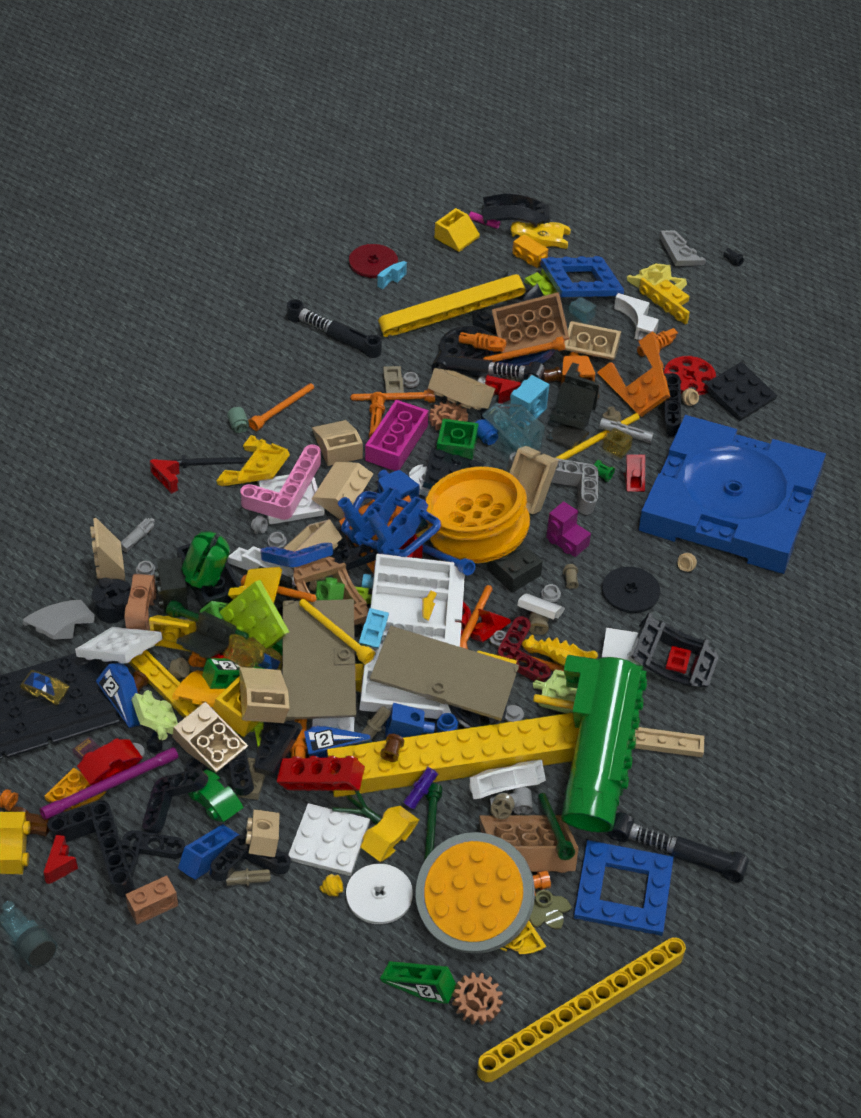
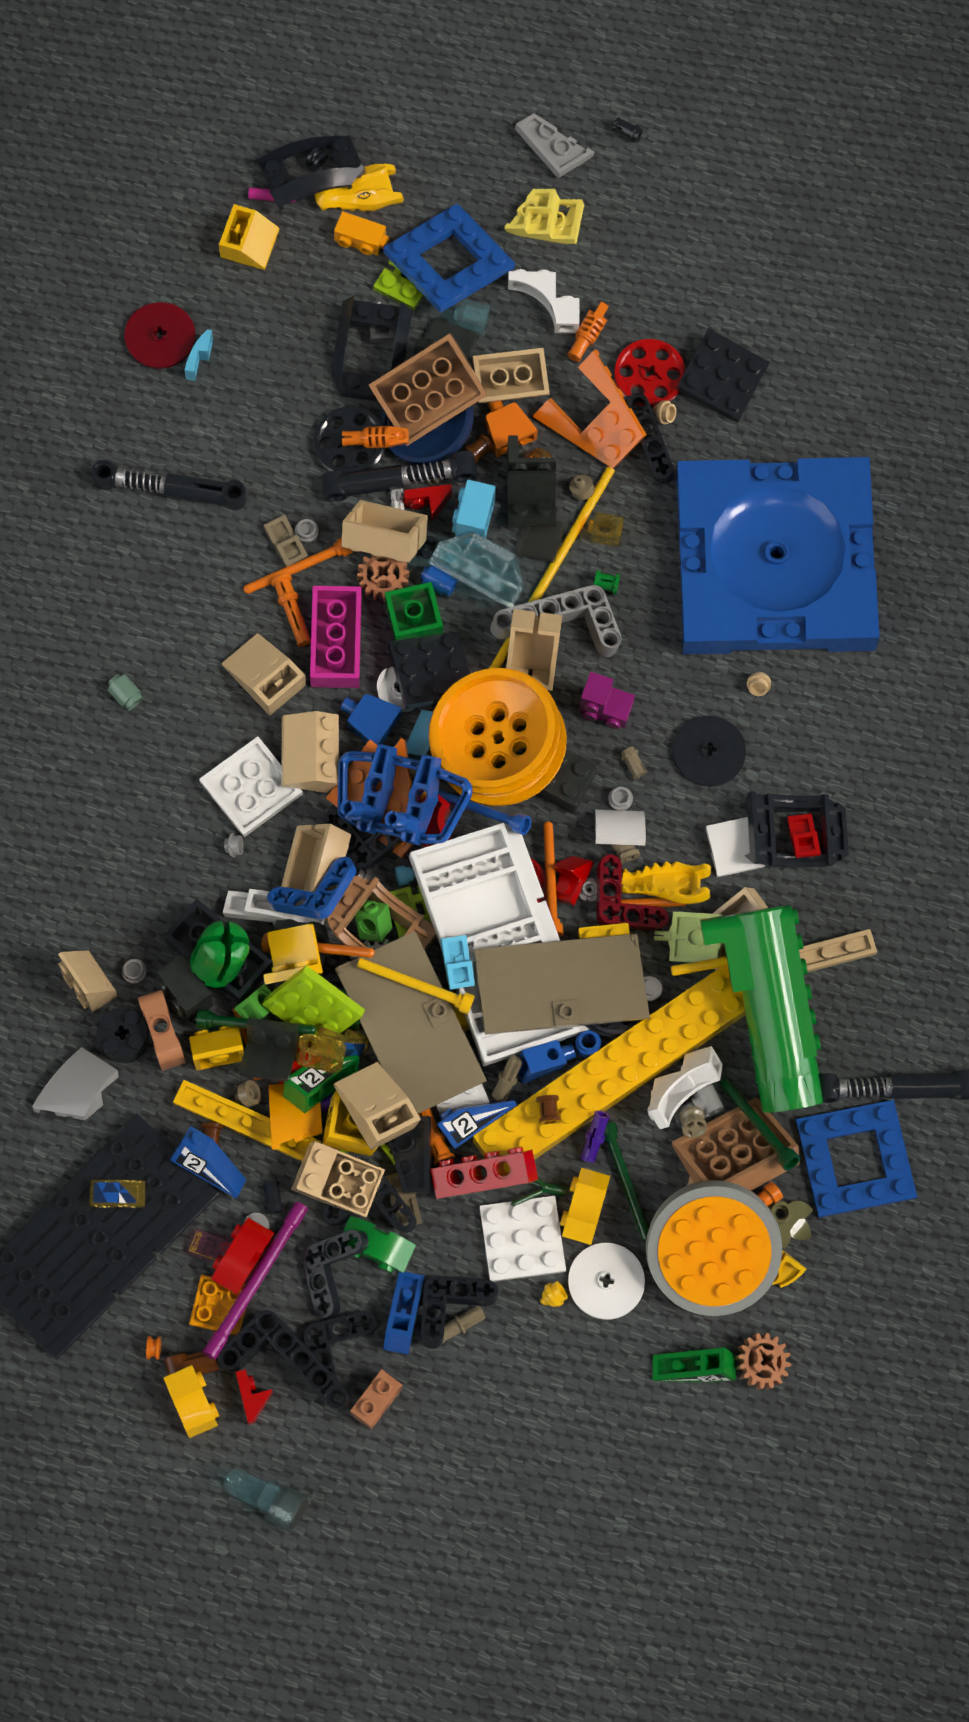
camera: 25 degrees left, 25 degrees up
(118, 644) = (171, 1101): white plate -> none
(138, 533) = (95, 922): light grey piece -> none
(154, 714) = (259, 1172): yellowish green plate -> none
(166, 473) = (76, 815): red slope -> none
(207, 461) = (93, 786): black sword -> none
(257, 422) = (150, 684): orange piece -> none
(261, 466) = (194, 754): yellow wing -> none
(263, 833) = (454, 1256): tan brick -> none
(277, 539) = (266, 860): light grey plate -> none
(284, 503) = (251, 779): bright pink beam -> none
(428, 605) = (503, 901): yellow bar -> none
(451, 305) = (308, 388): yellow beam -> none
(557, 344) = (475, 412): orange piece -> none
(576, 1016) = (882, 1316): yellow beam -> none
(635, 473) = (647, 572): slope -> none
(636, 433) = (608, 504): light grey pin -> none
(668, 297) = (572, 245): yellow bracket -> none

